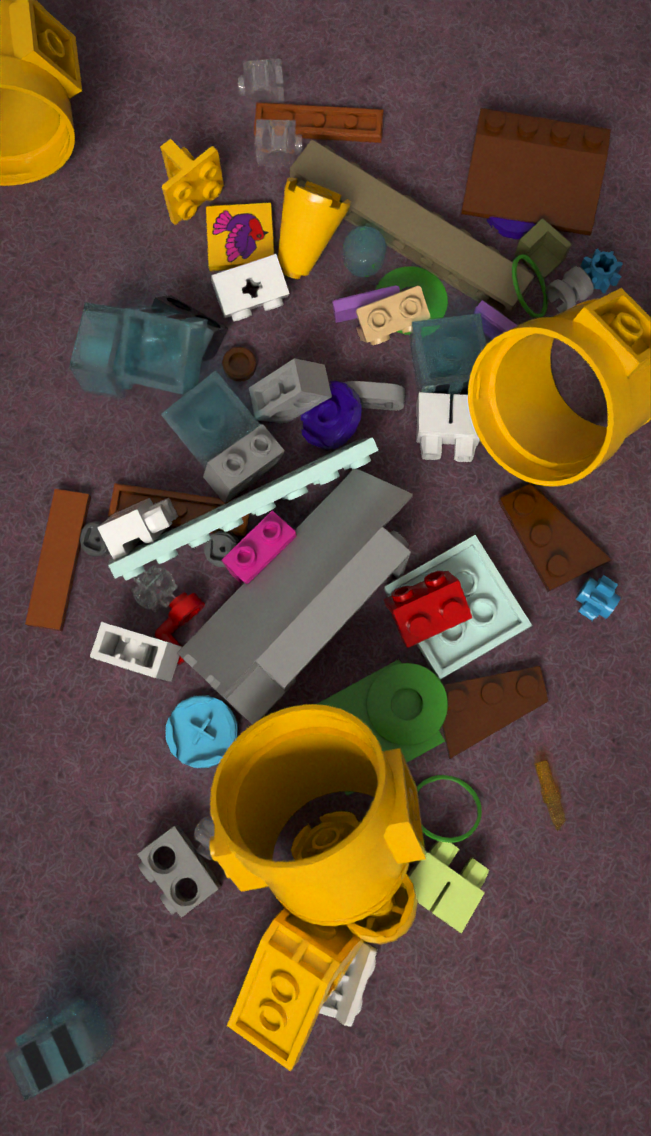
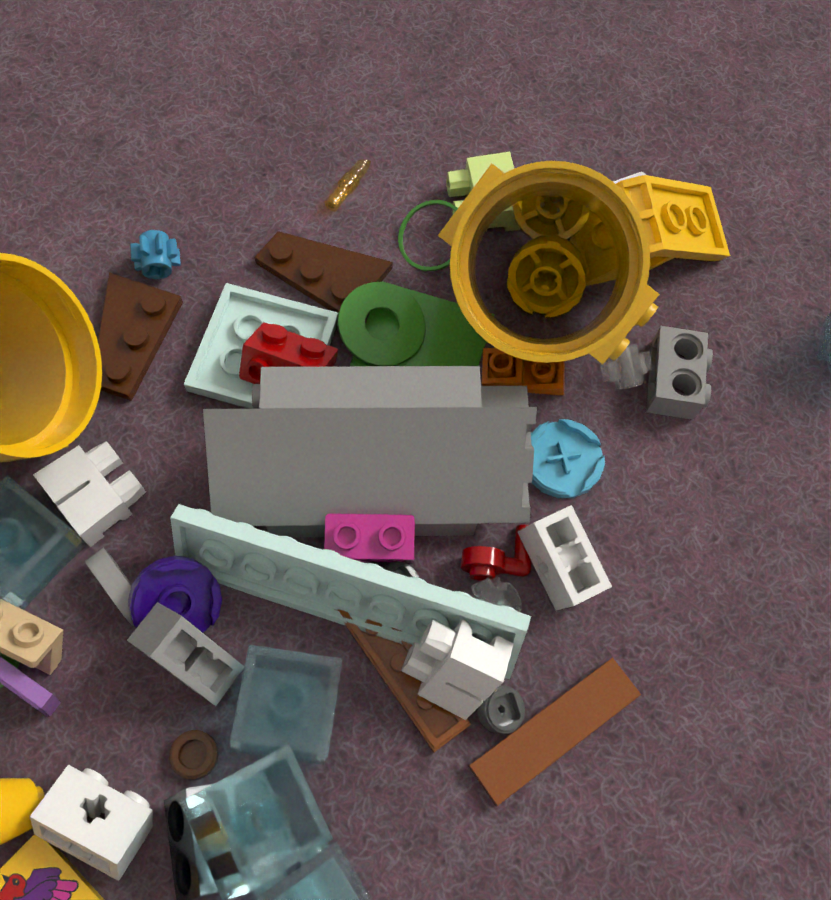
camera: 140 degrees left, 10 degrees down
(243, 463) = (302, 628): light grey brick -> none

